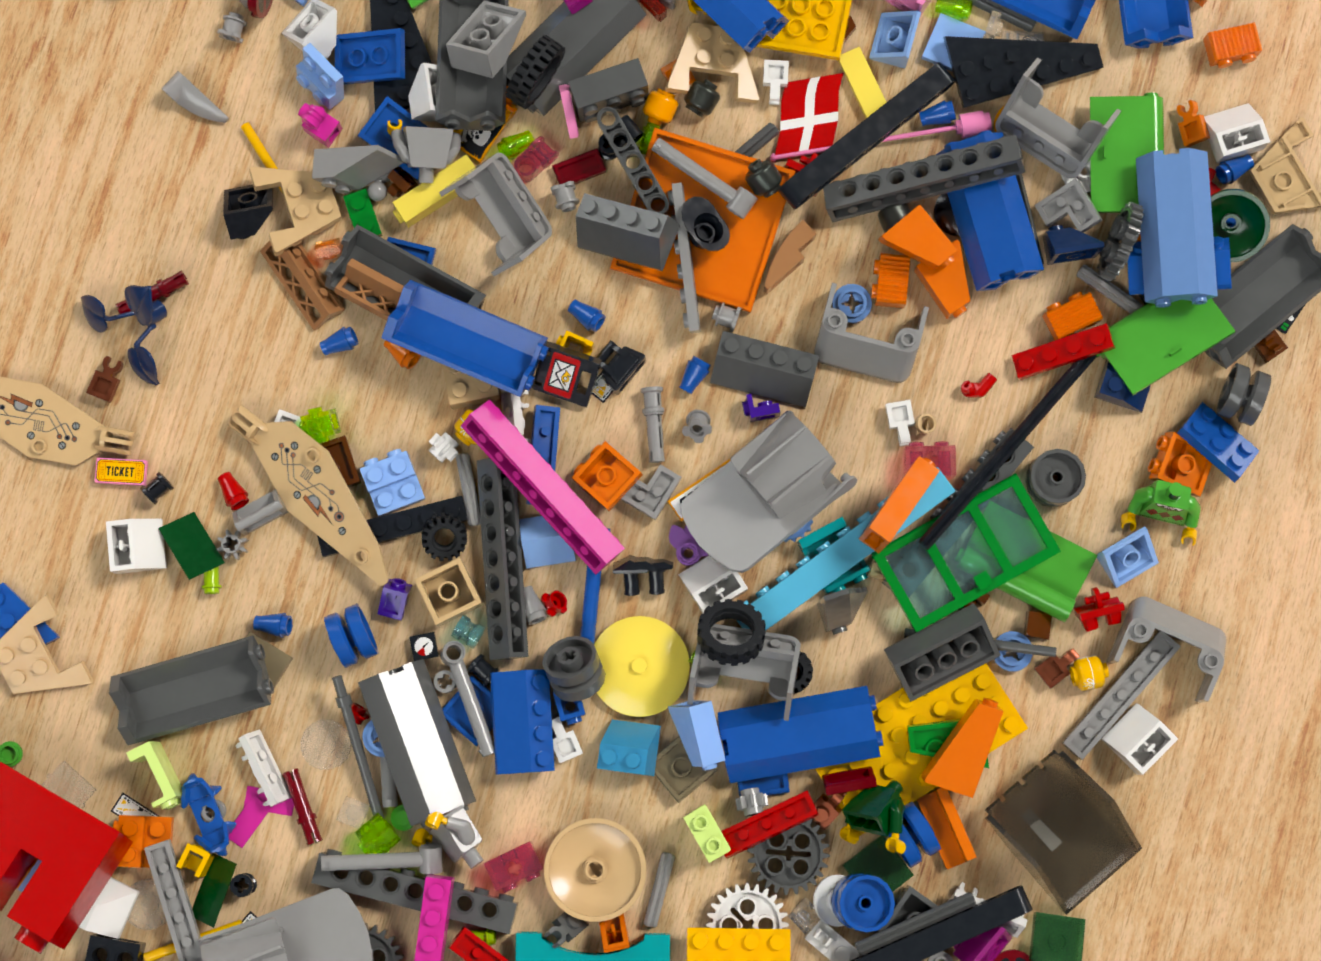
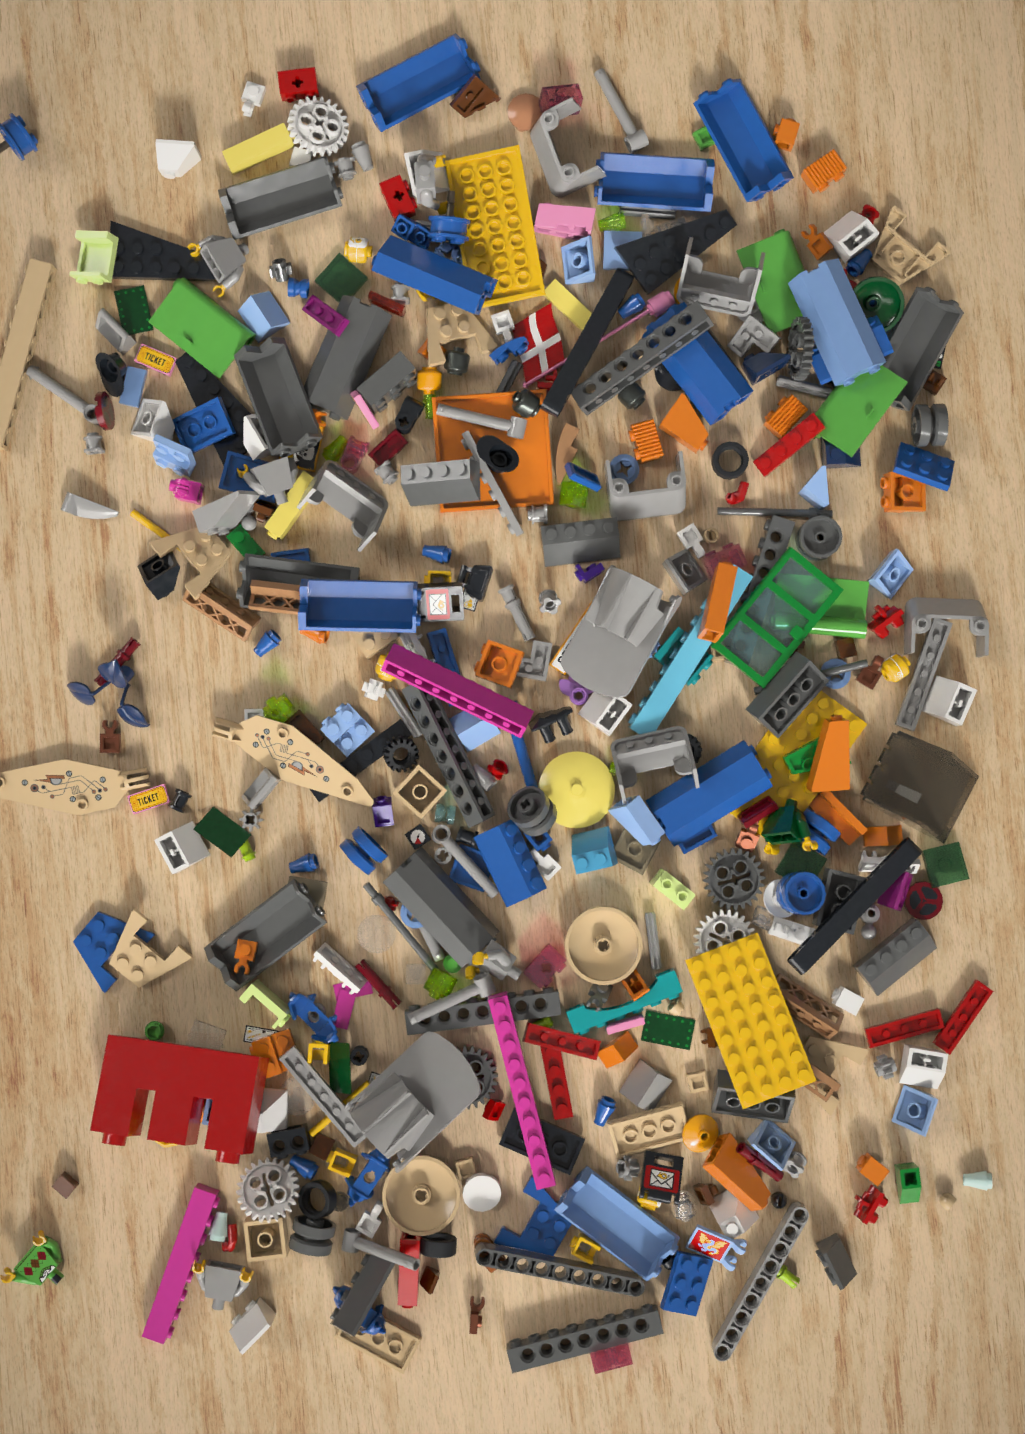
camera: 25 degrees left, 5 degrees up
(158, 702) = (245, 952): none -> orange plate
(233, 493) = (235, 781): red cone -> none
(328, 249) = (231, 579): clear orange plate -> none
(485, 39) = (283, 380): light grey slope -> none
(535, 72) = (330, 391): black tyre -> none
(631, 150) = (420, 422): dark grey beam -> none
(694, 373) = (531, 565): blue cone -> none
(736, 611) = (630, 724): black tyre -> none
(751, 801) = (694, 854): light grey gear -> none
(769, 823) = (713, 863): red plate -> none
(779, 308) = (573, 494): none -> clear neon green brick
(781, 108) = (515, 346): none -> blue slope
(797, 291) = (583, 476): none -> blue tile
(840, 608) = (703, 693): dark grey wedge -> none
(876, 454) = (684, 571): none -> light grey slope
(915, 923) = (839, 898): dark grey axle -> none
(920, 239) = (656, 404): orange slope -> none
(993, 873) = (883, 835): none -> orange slope
(995, 327) = (730, 446): none -> black tyre
(1004, 452) = (776, 535): black axle -> none
(1059, 443) = (811, 512): none -> dark grey bar
(1074, 418) = (816, 490): none -> light blue slope
(1165, 503) = (904, 525): bright green torso -> none
(1272, 113) = (867, 209): none -> red plate

